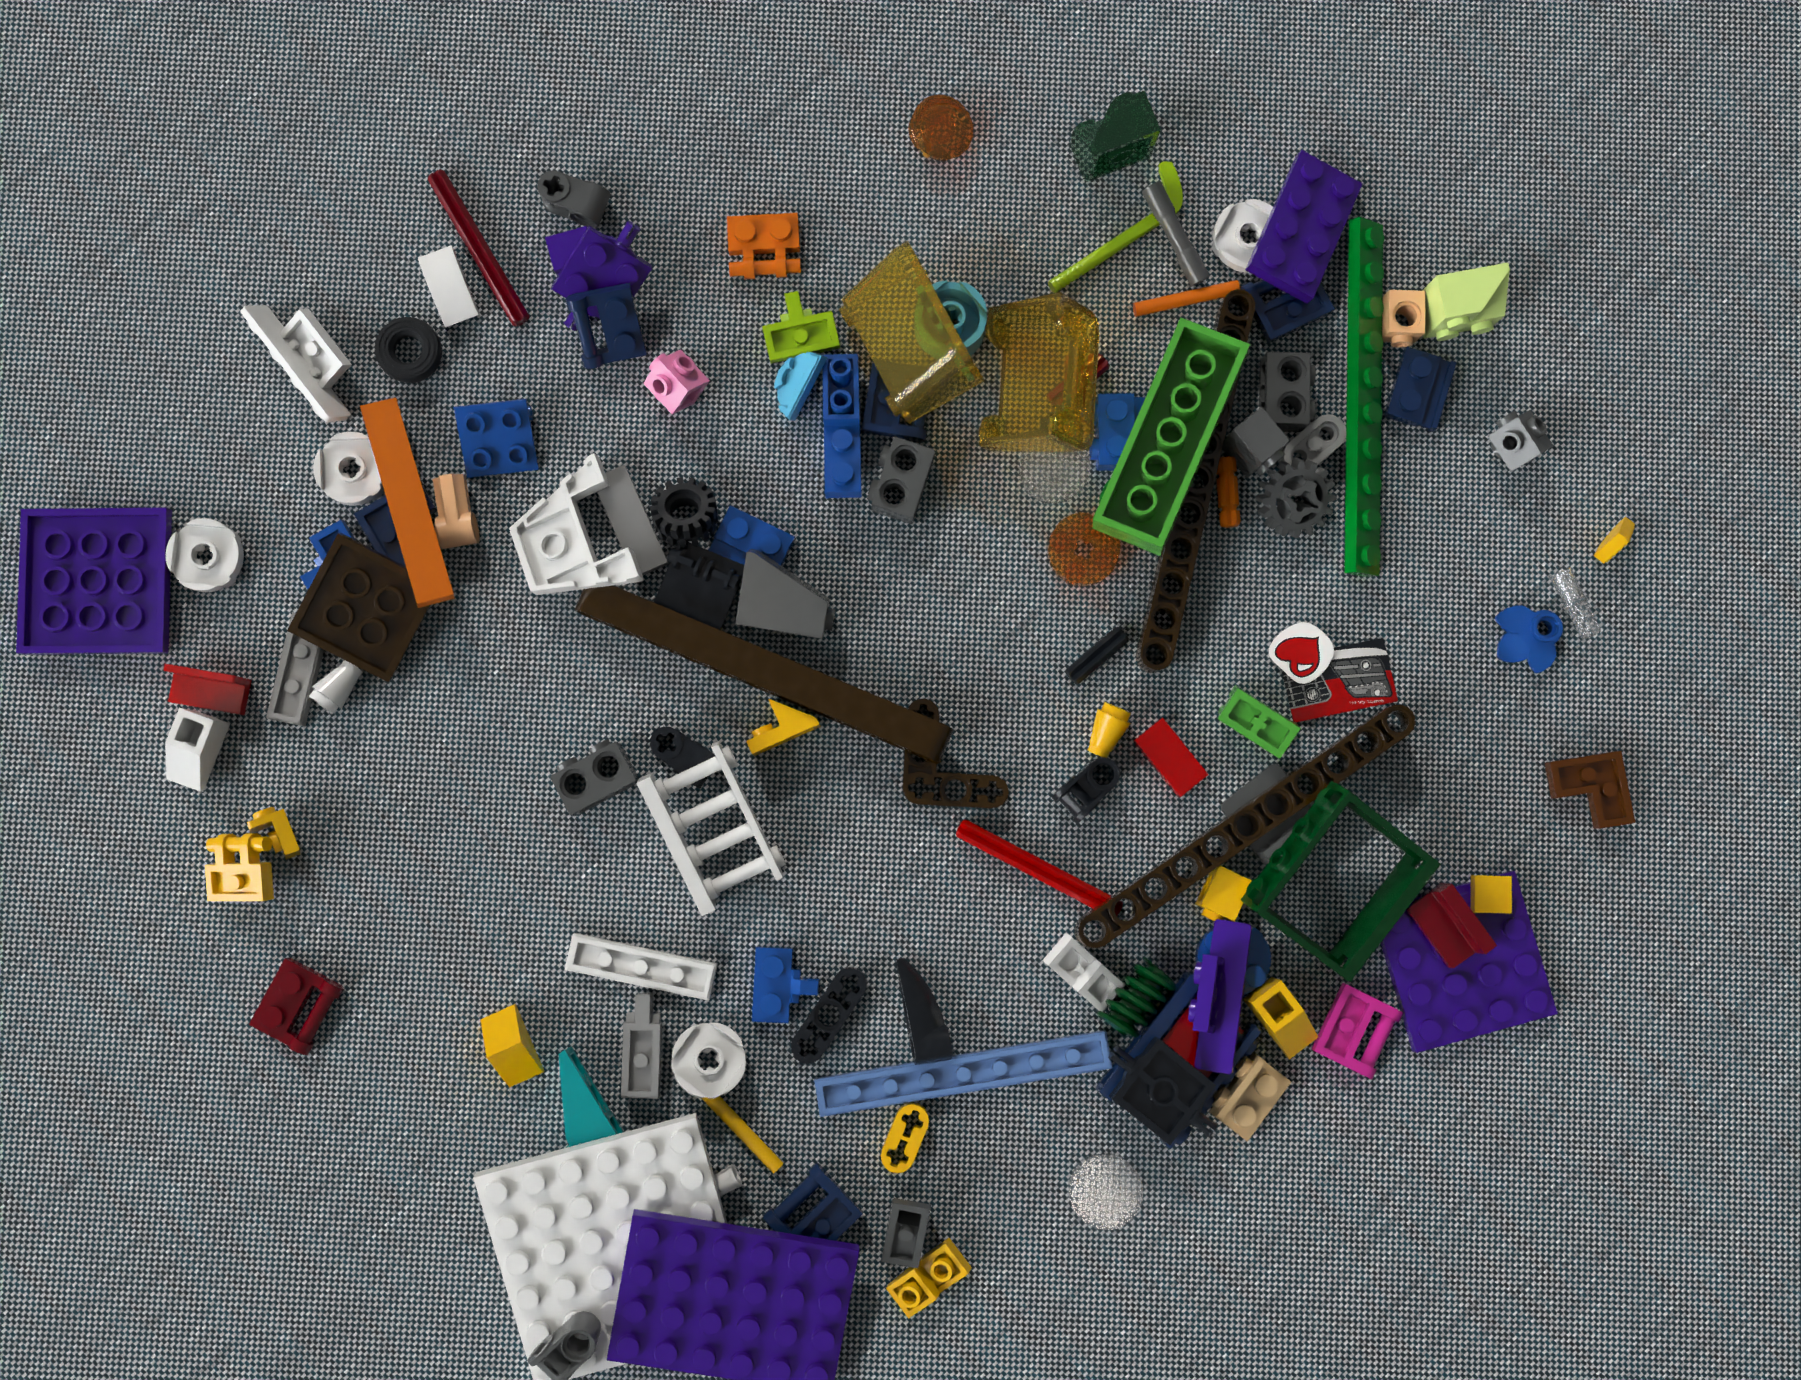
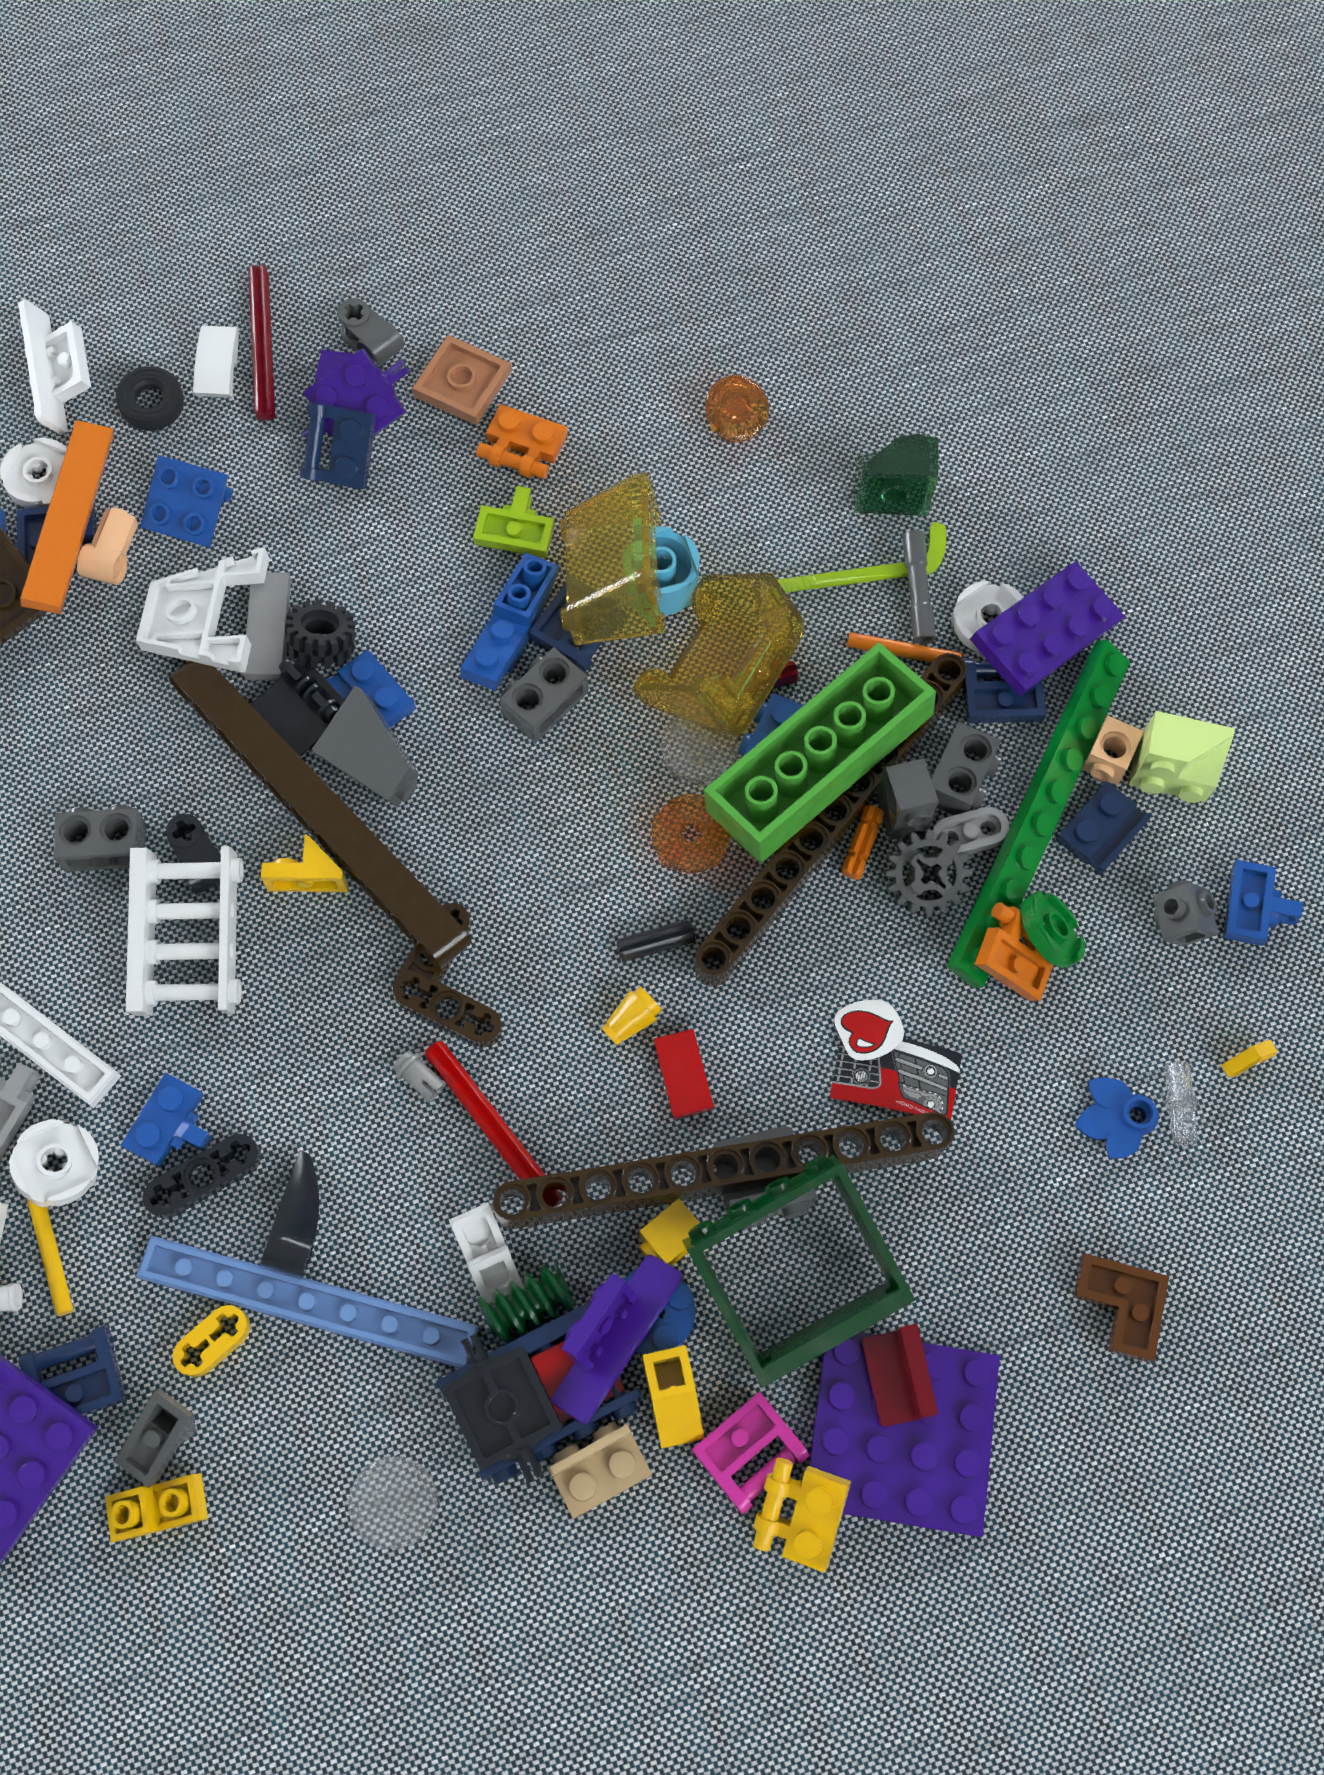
camera: 25 degrees right, 15 degrees down
(675, 381) = (375, 519): bright pink brick -> none
(680, 207) = (462, 380): none -> nougat plate
(796, 381) = (488, 567): medium azure plate -> none
(960, 856) = (418, 1075): none -> light grey pin
(1086, 789) = (579, 1064): black piece -> none
(1258, 722) = (788, 1073): bright green hinge -> none
(1398, 546) = (1010, 960): none -> orange plate
(1417, 504) = (1051, 929): none -> green tile
(1429, 1060) = (815, 1517): none -> yellow plate
(1491, 894) = (960, 1363): yellow tile -> none
(1570, 403) = (1255, 904): none -> blue hinge

